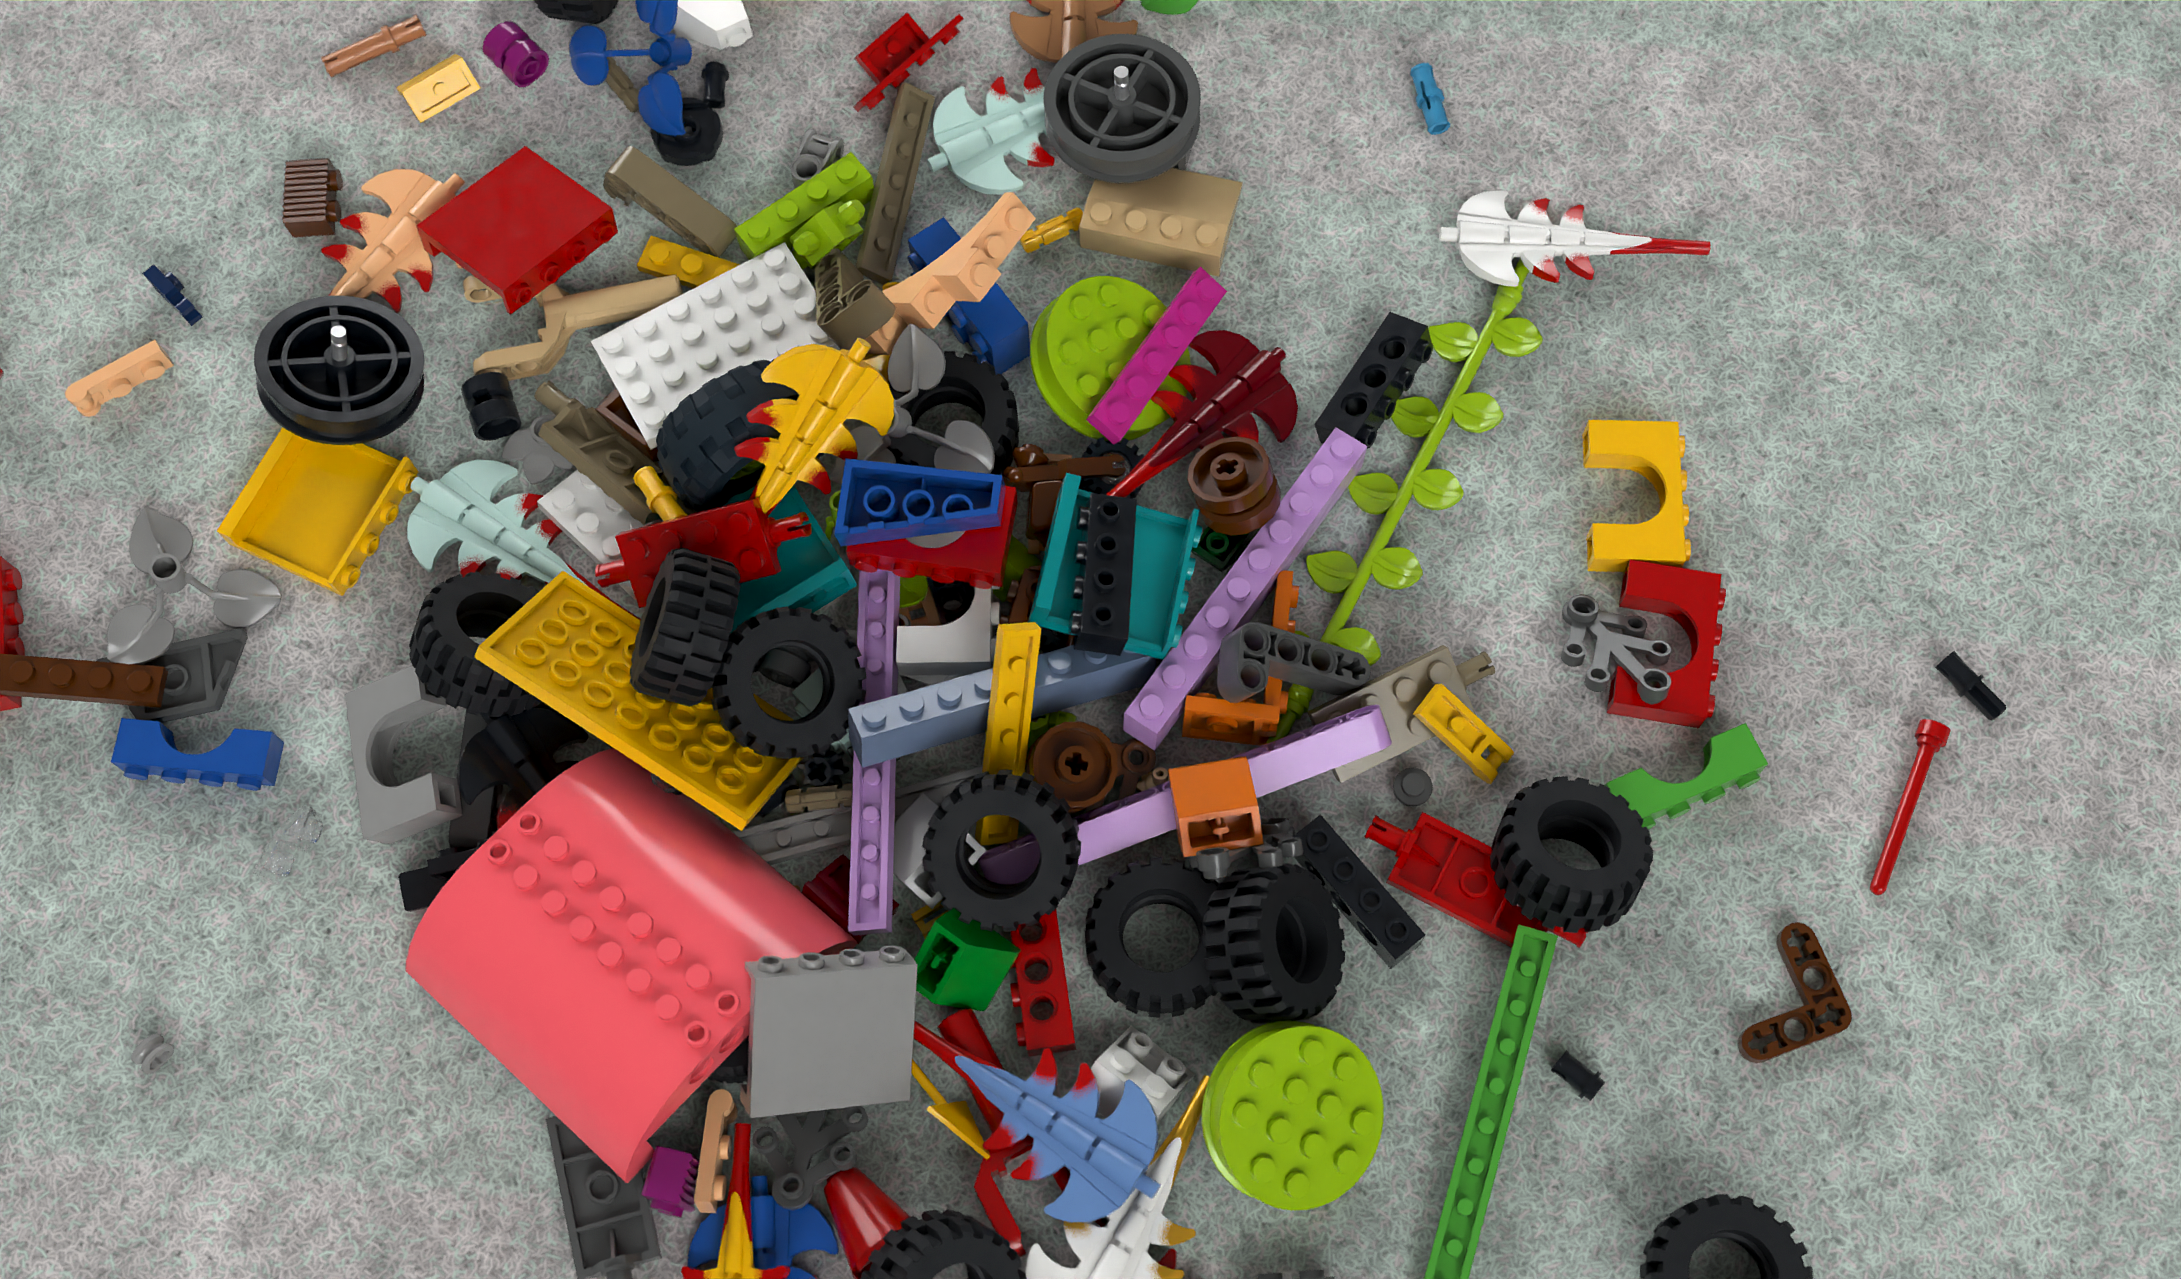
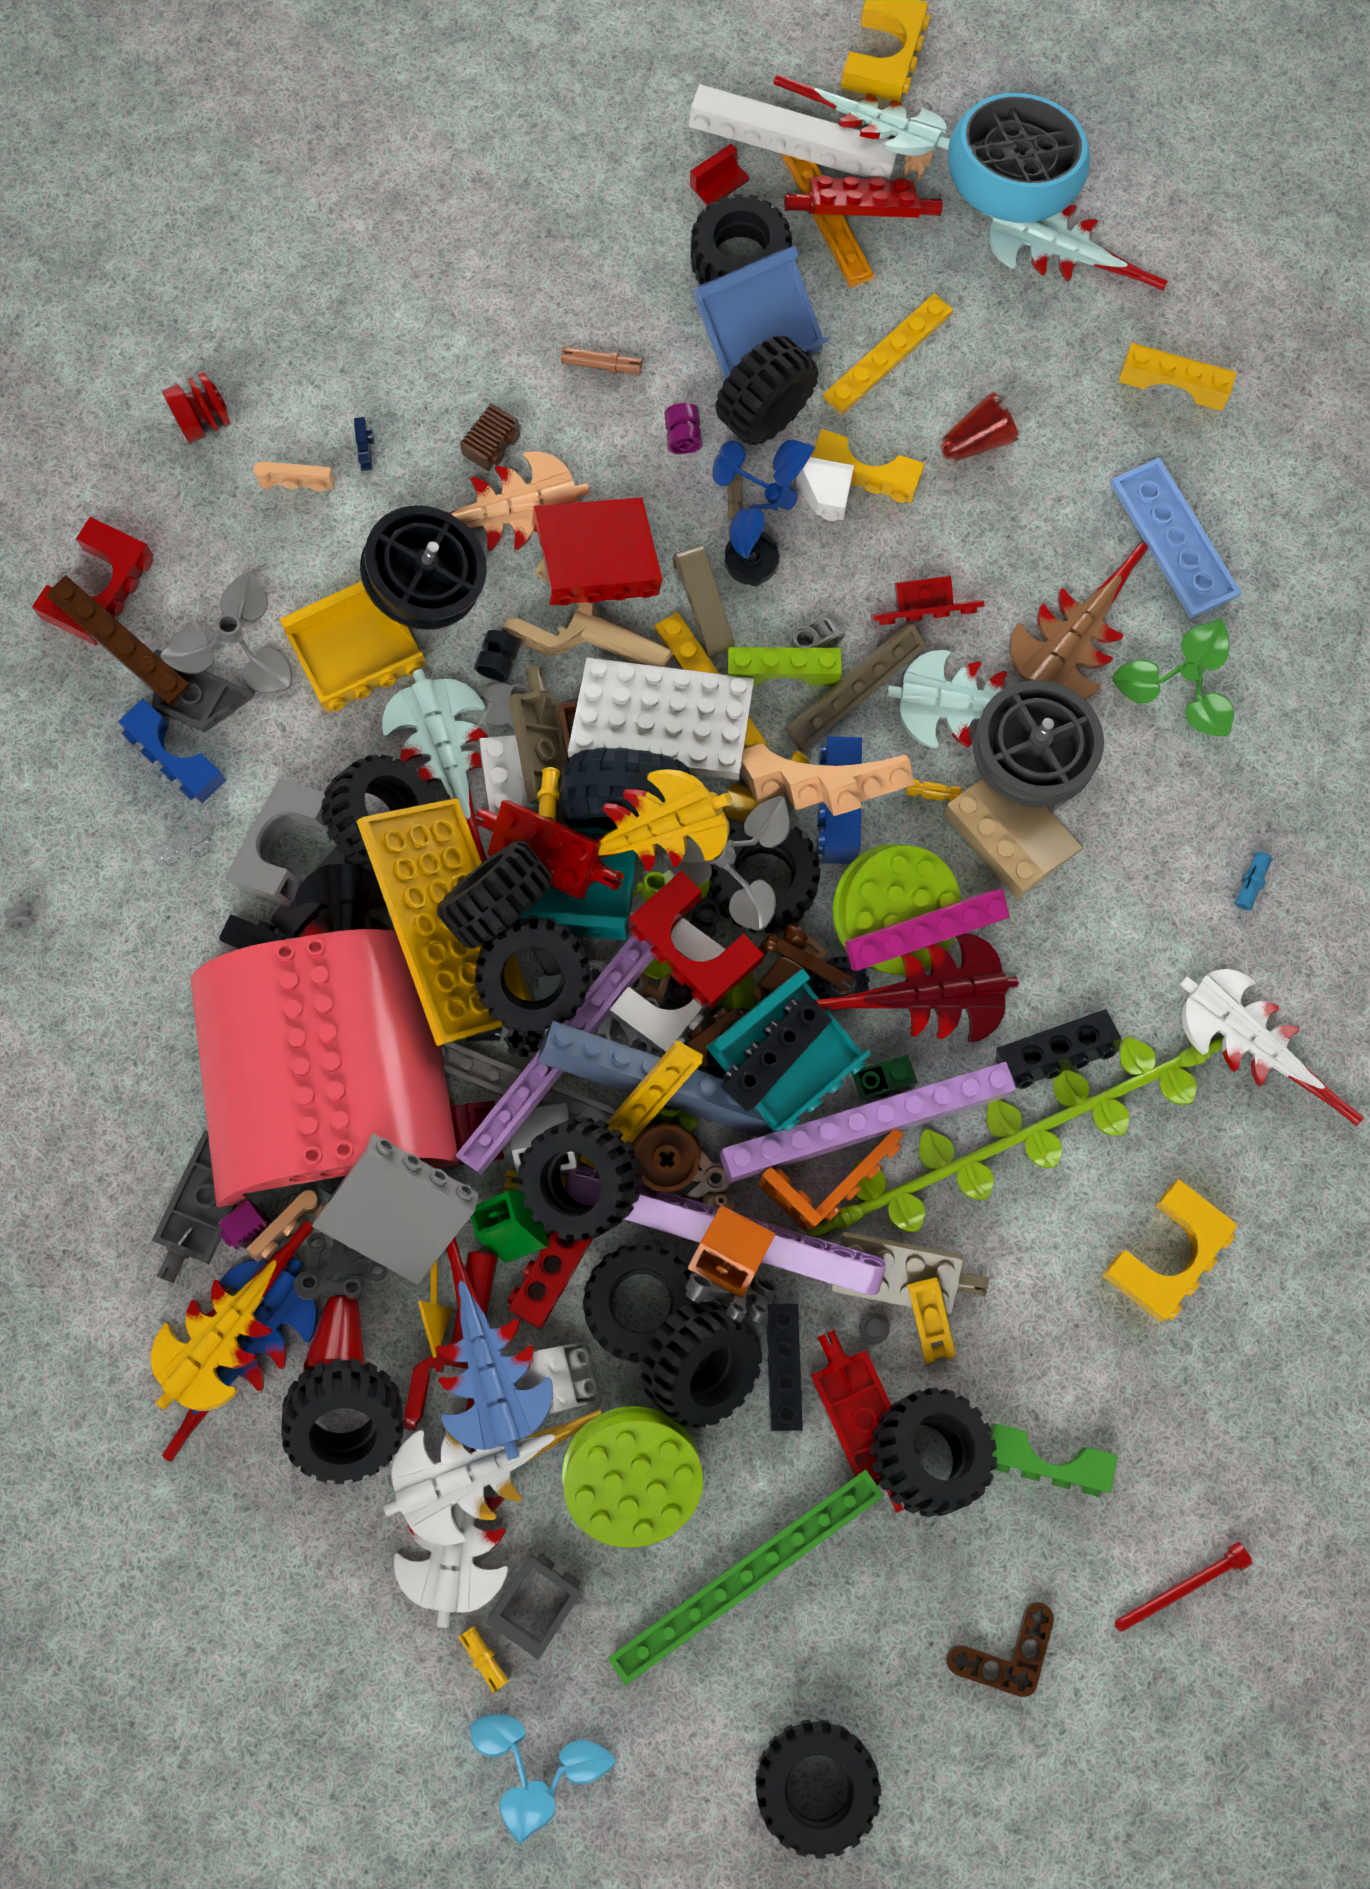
camera: 35 degrees right, 5 degrees up
(438, 87) = (620, 416): yellow panel -> none
(714, 85) = (797, 532): black pin -> none
(819, 798) = (504, 1055): dark tan axle -> none
(828, 229) = (783, 692): lime piece -> none
(846, 302) = (753, 754): dark tan beam -> none
(912, 501) = (686, 916): blue wedge -> none
(1234, 485) = (907, 1053): reddish brown wheel -> none
(1300, 662) = (854, 1198): dark grey beam -> none
(1578, 1076) = (831, 1590): black pin -> none
(1584, 614) = (1075, 1340): dark grey plant -> none
(1694, 603) = (1151, 1349): red arch -> none
(1971, 686) = (1292, 1546): black axle -> none

